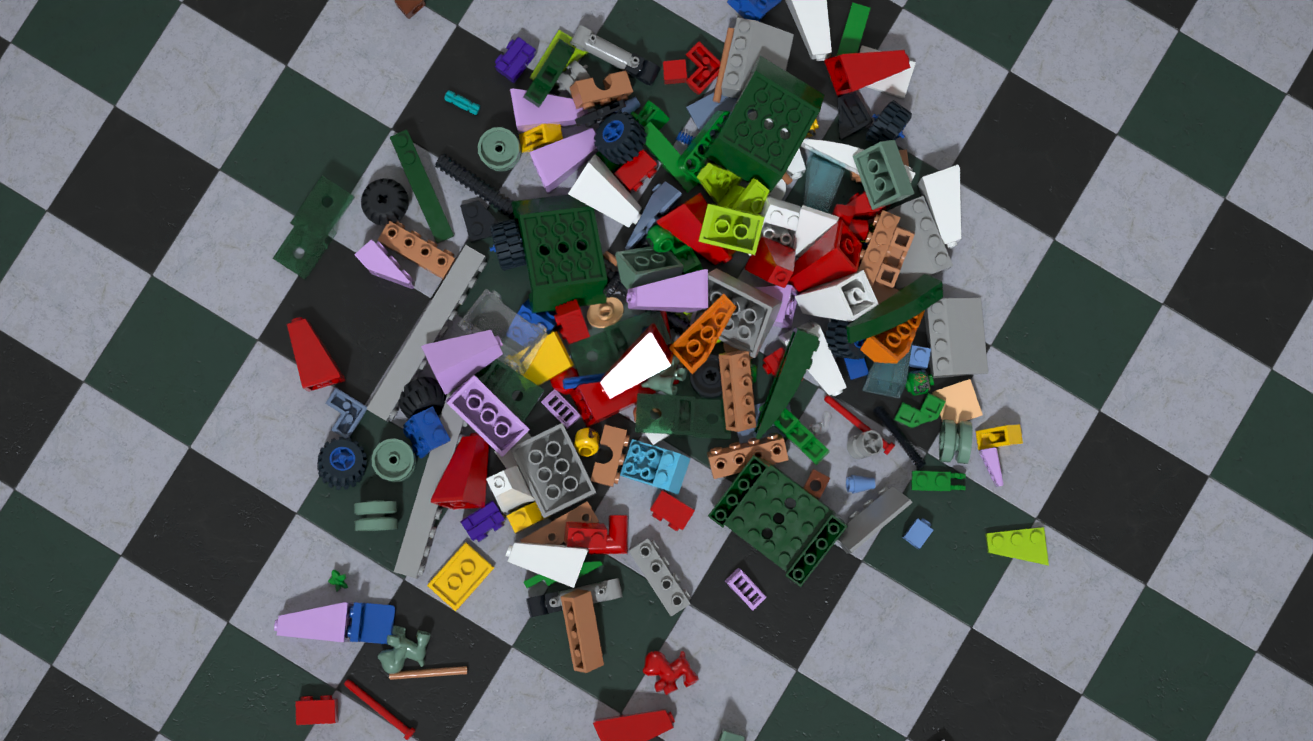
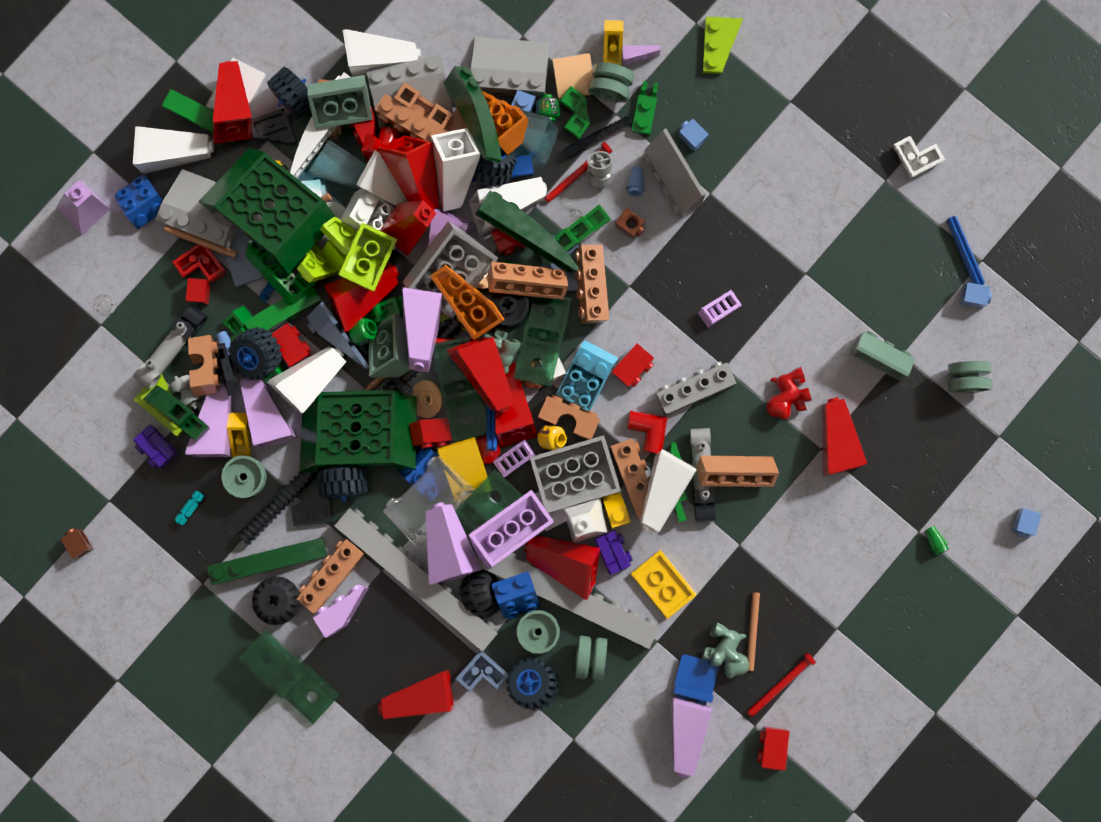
camera: 75 degrees left, 0 degrees up
(338, 580) = (647, 707): green plant -> none
(585, 535) = (644, 451): red brick -> none
(796, 542) = (681, 246): dark green slope -> none

